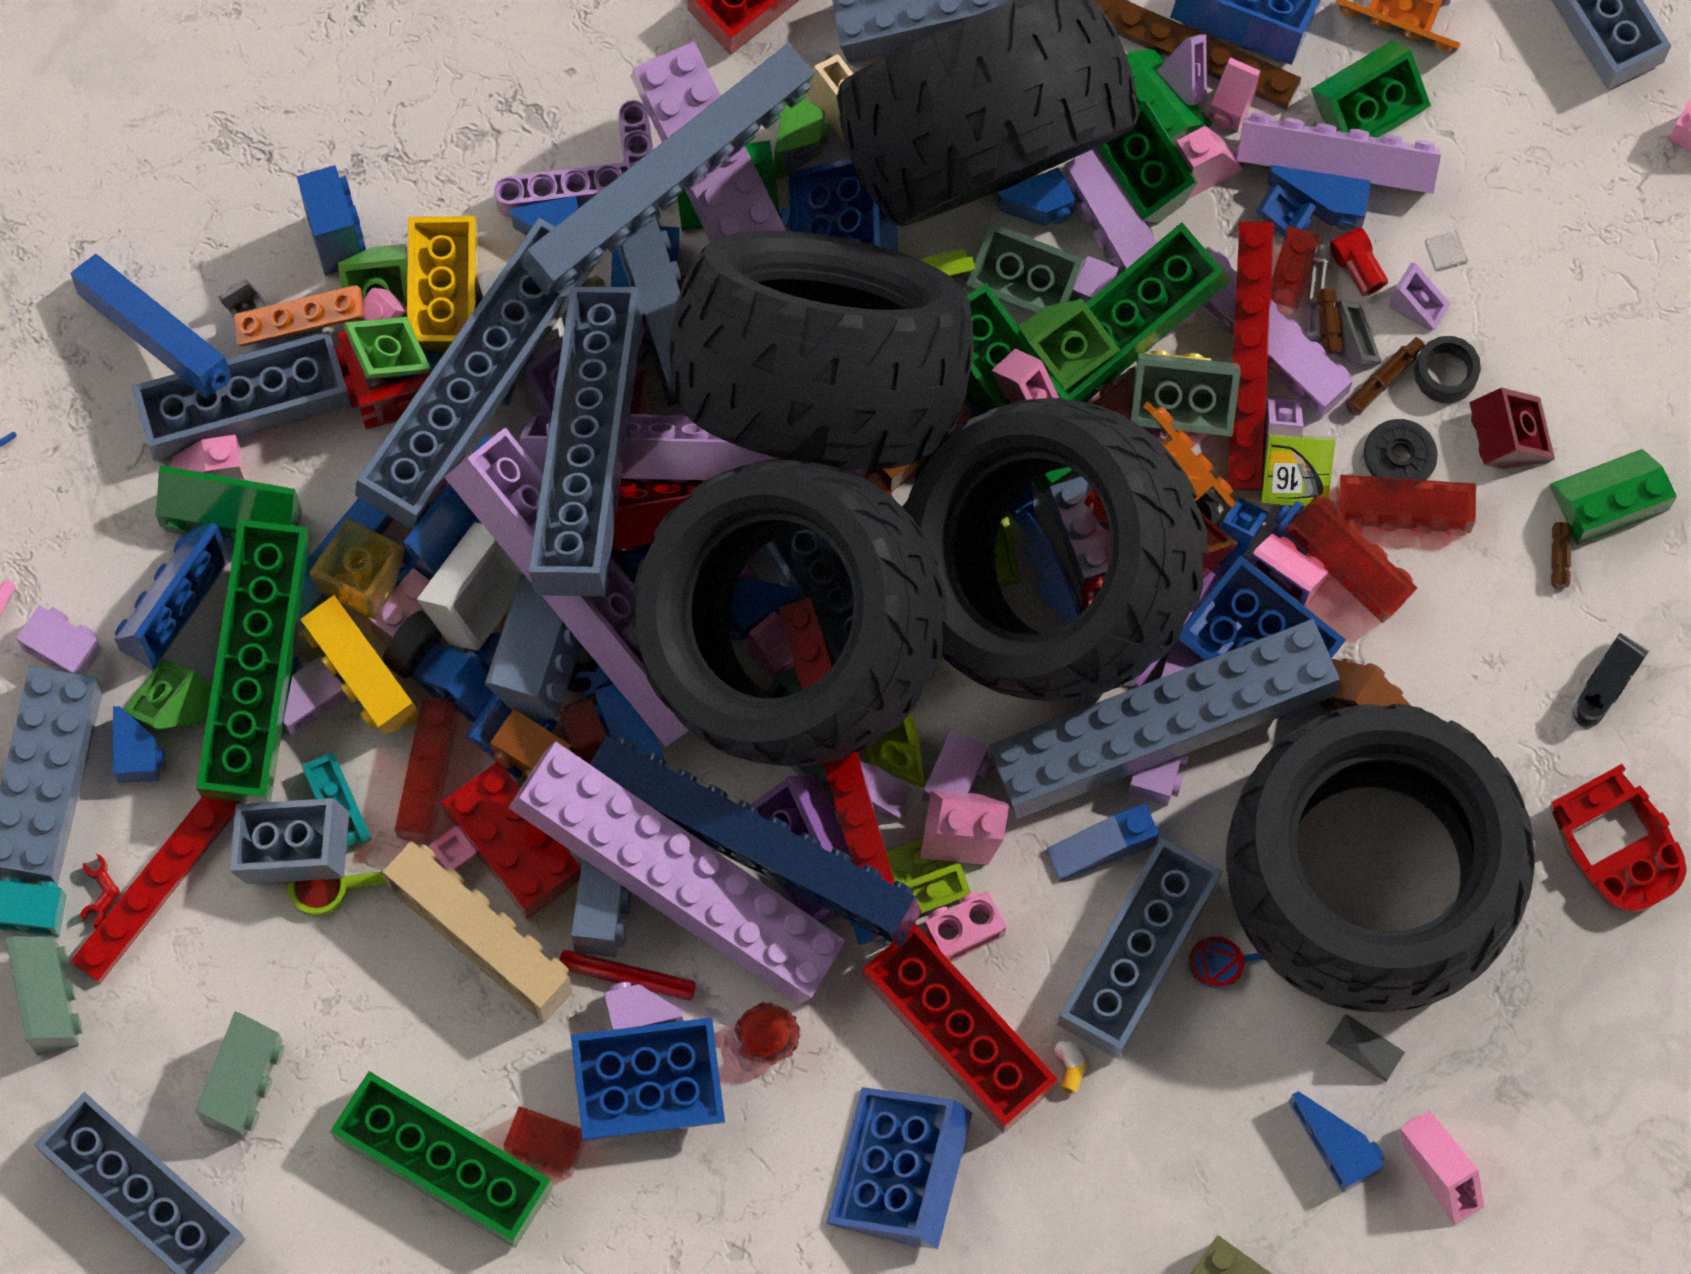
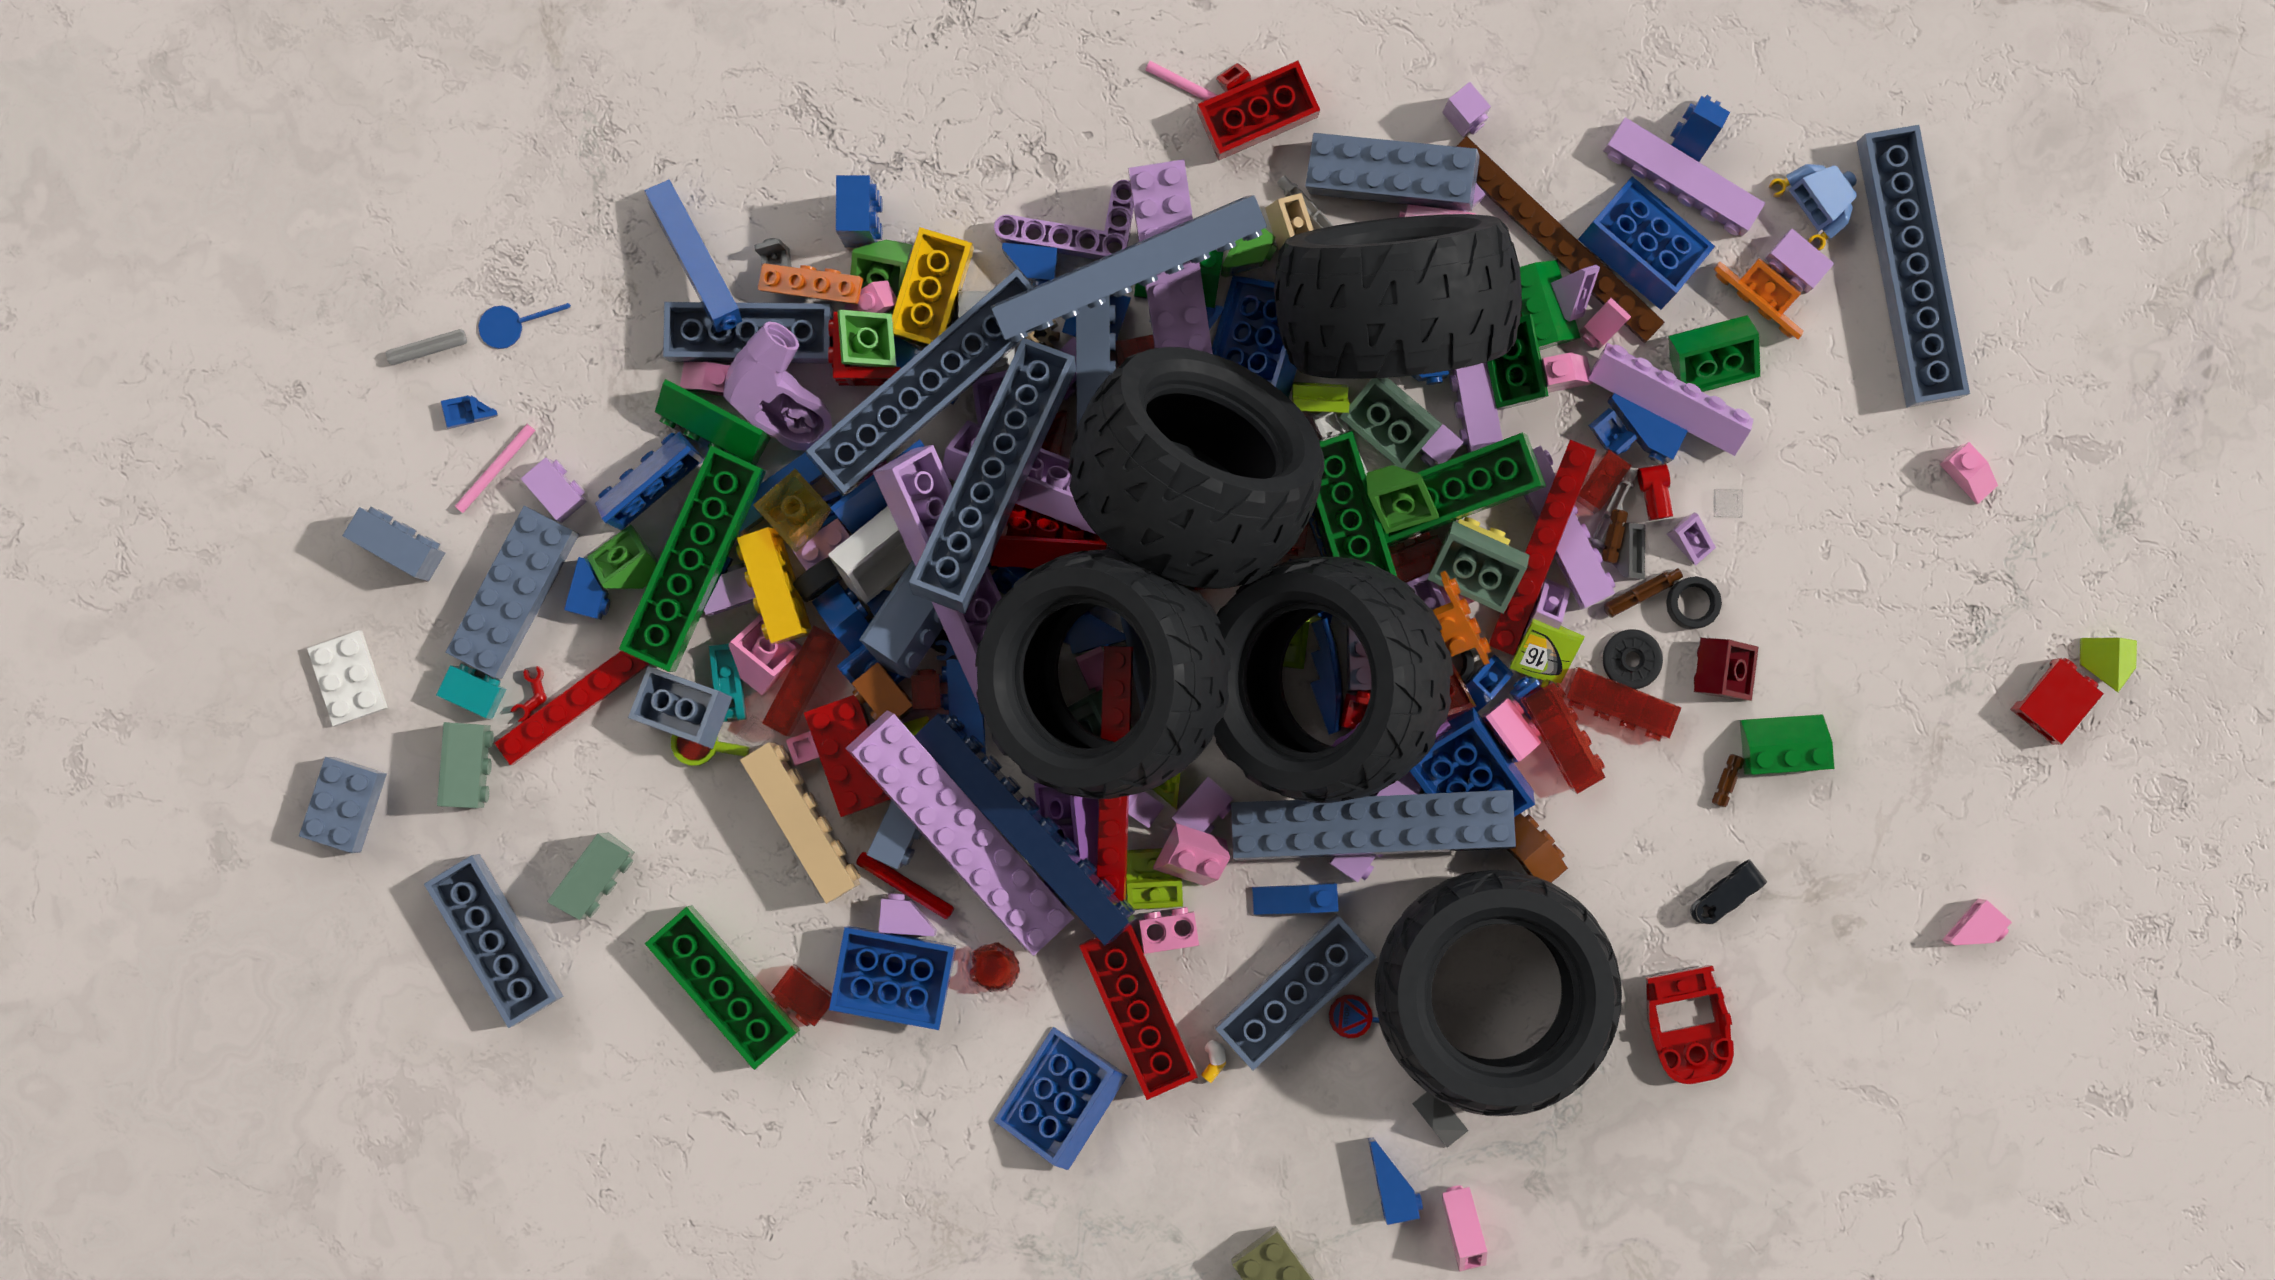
camera: 20 degrees right, 15 degrees up
(289, 451) = (770, 395): none -> lavender piece
(370, 758) = (758, 660): none -> bright pink slope
(1023, 378) = (1355, 529): bright pink slope -> none

